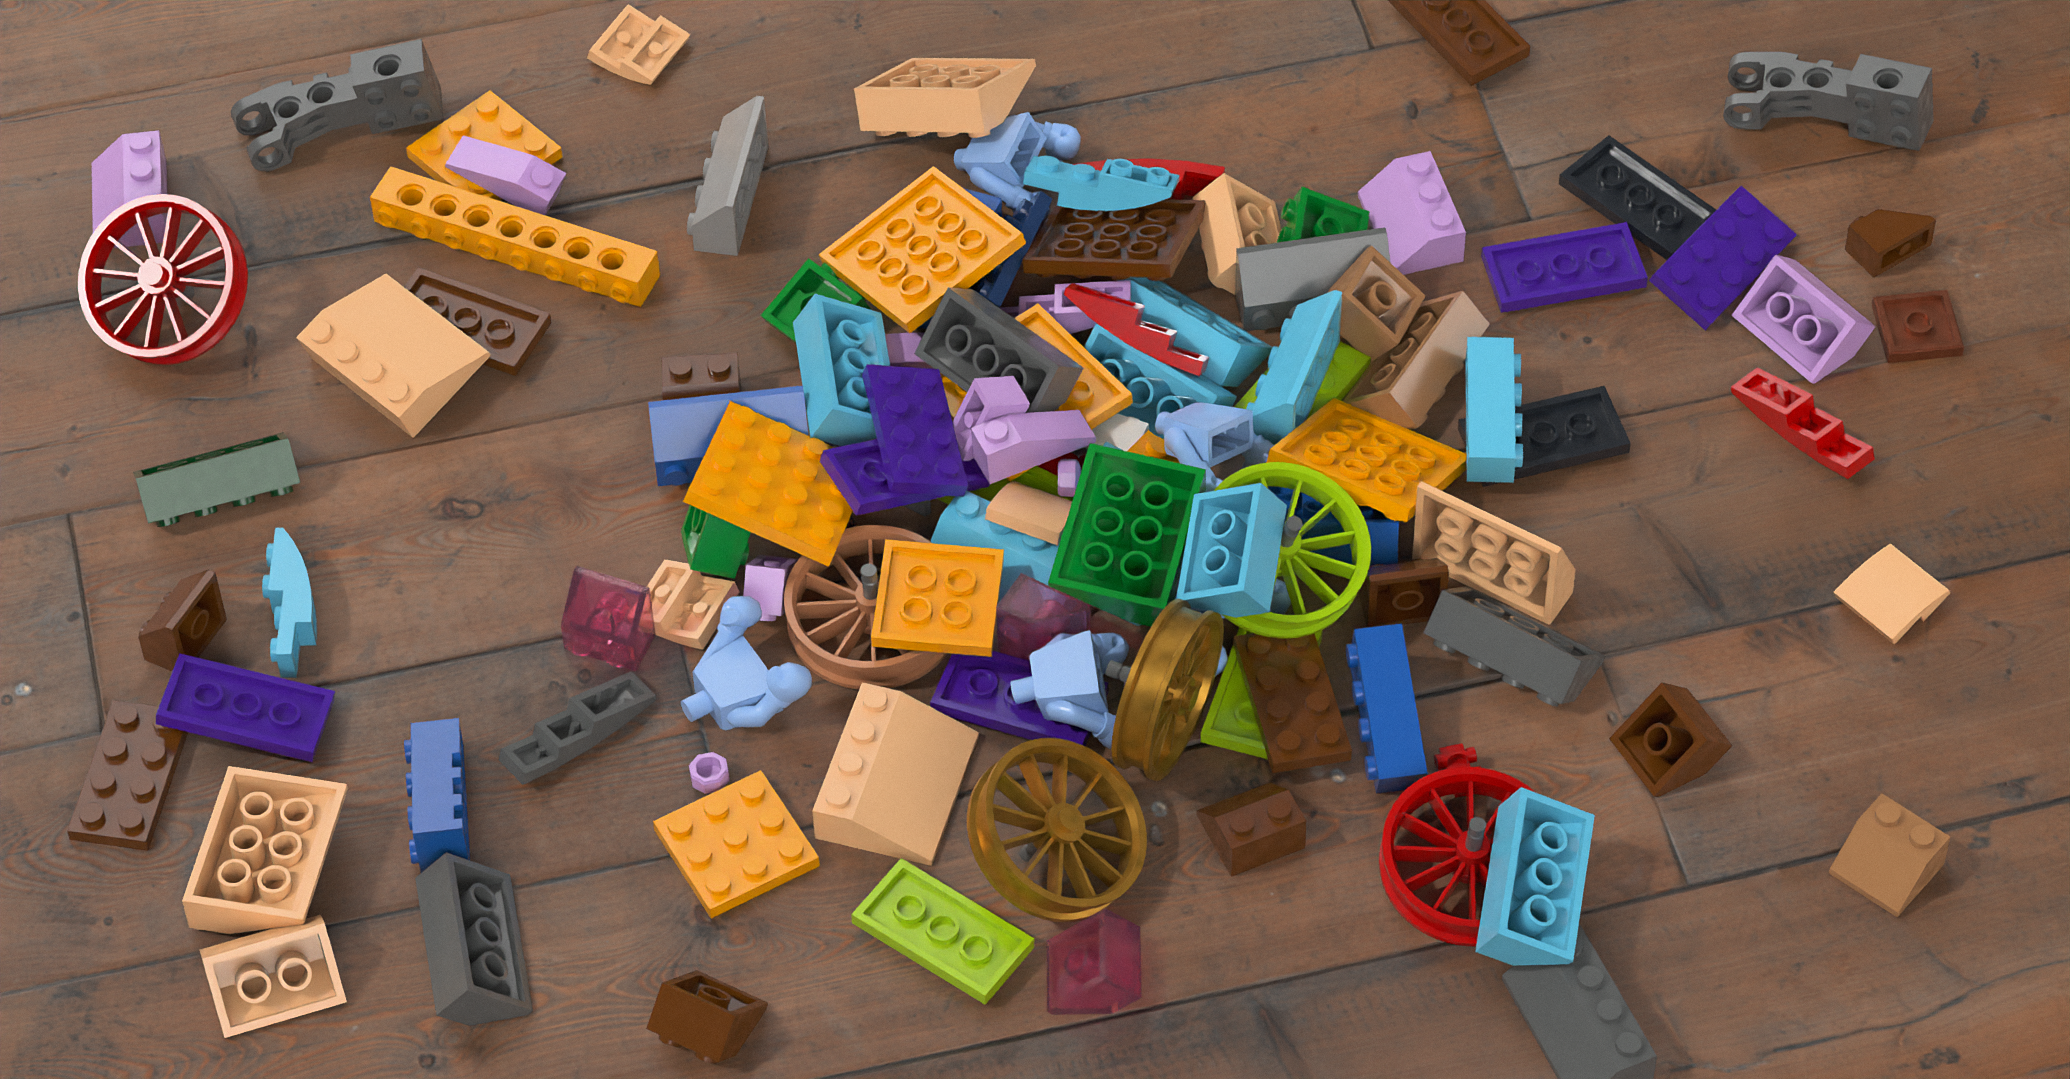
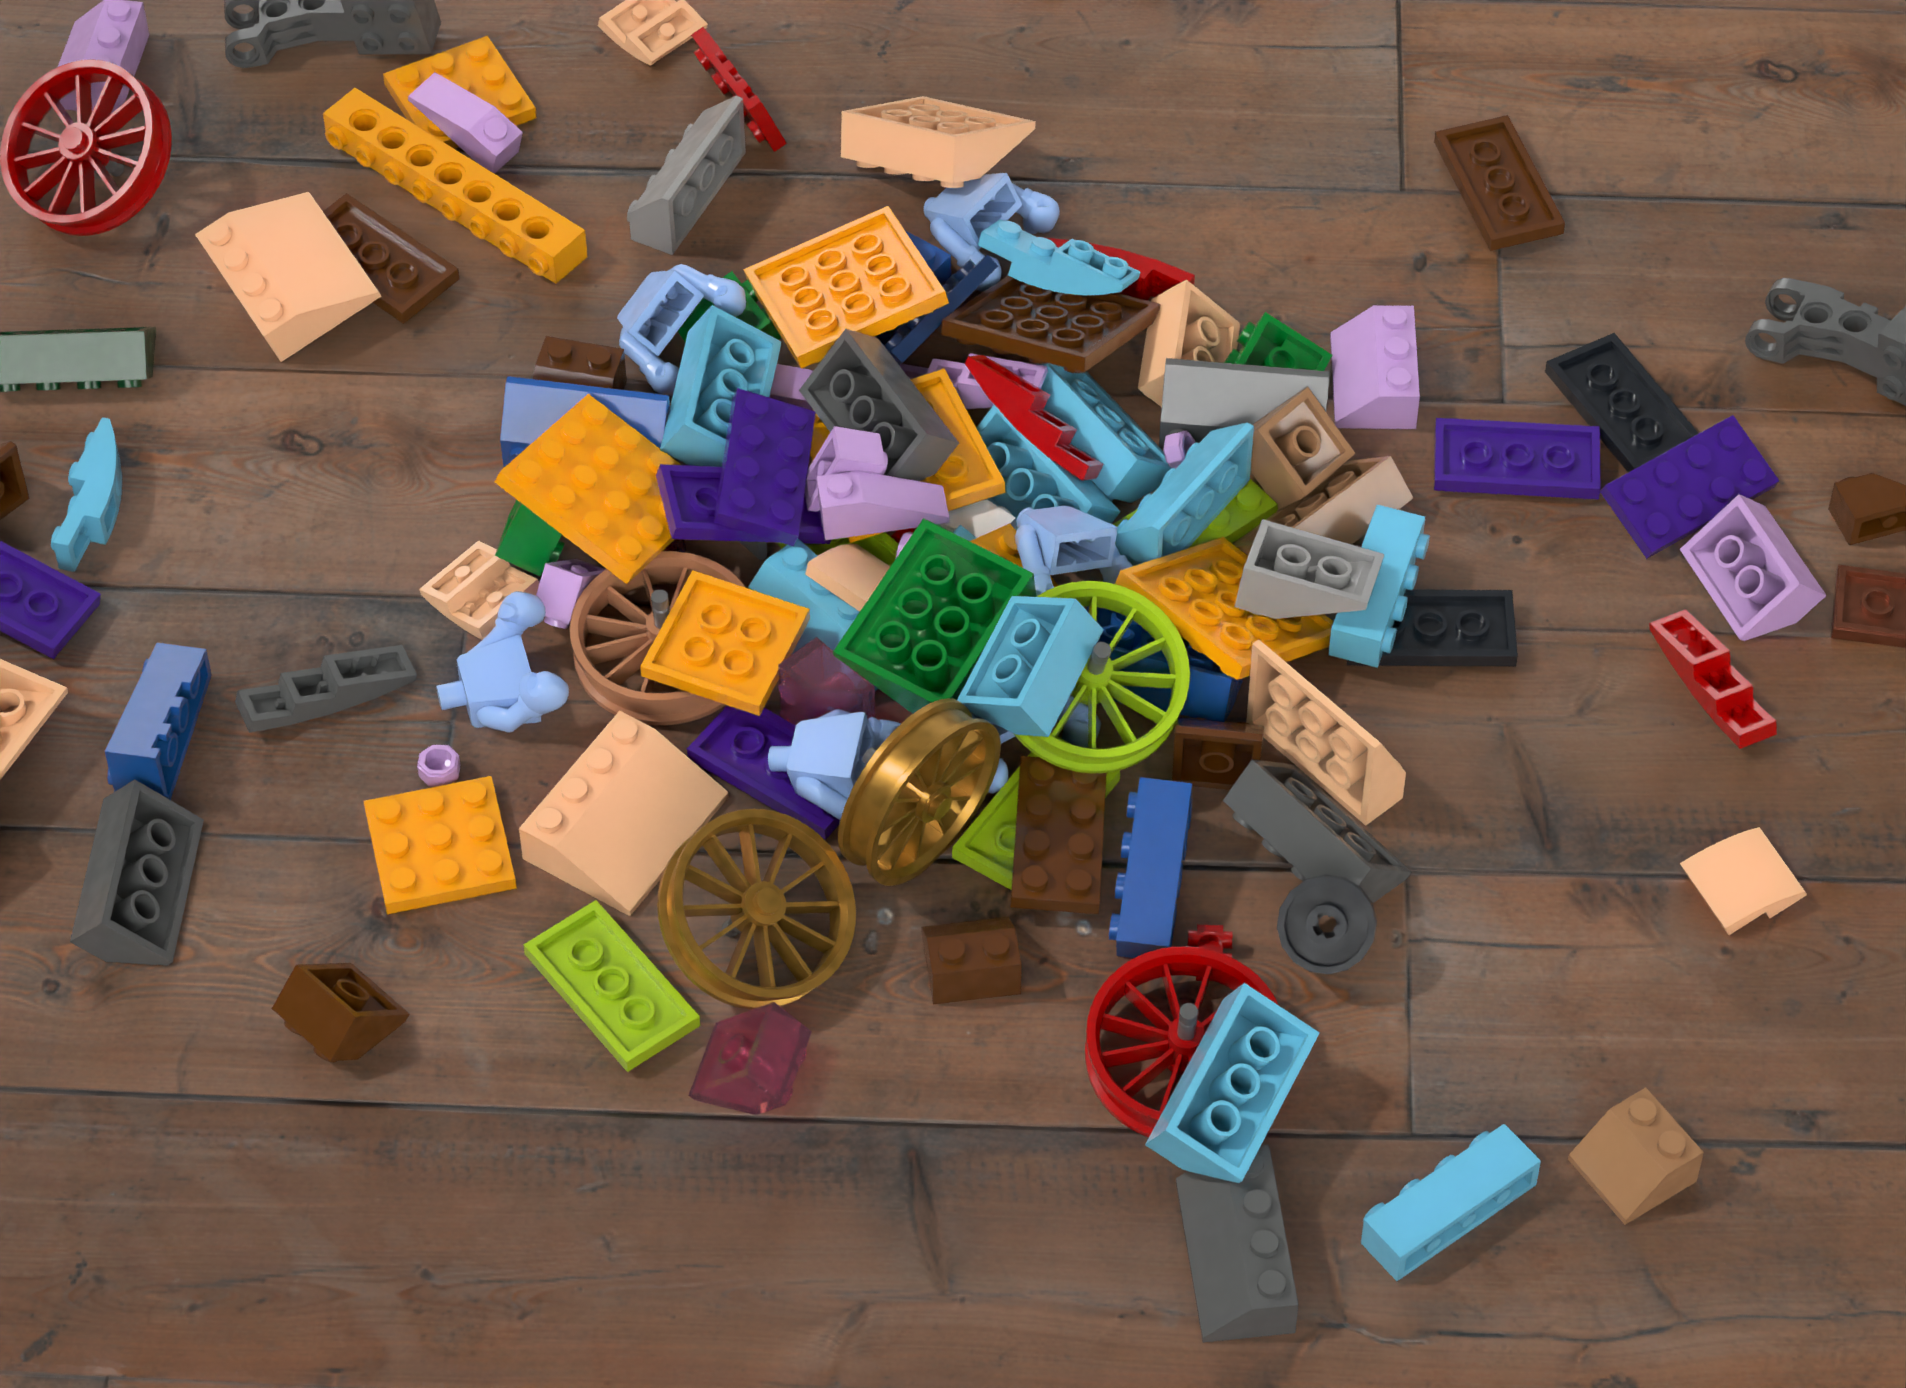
camera: 15 degrees right, 0 degrees up
(607, 619) = (393, 586): clear pink slope -> none
(734, 81) = (728, 80): none -> red wing
(756, 309) = (661, 309): none -> light blue torso
(1268, 329) = (1176, 447): none -> lavender tile
(1431, 414) = (1305, 574): none -> light grey slope
(1582, 725) = (1322, 950): none -> black wheel
(1670, 740) = (1445, 975): reddish brown slope -> none
(1745, 935) = (1449, 1201): none -> medium azure brick

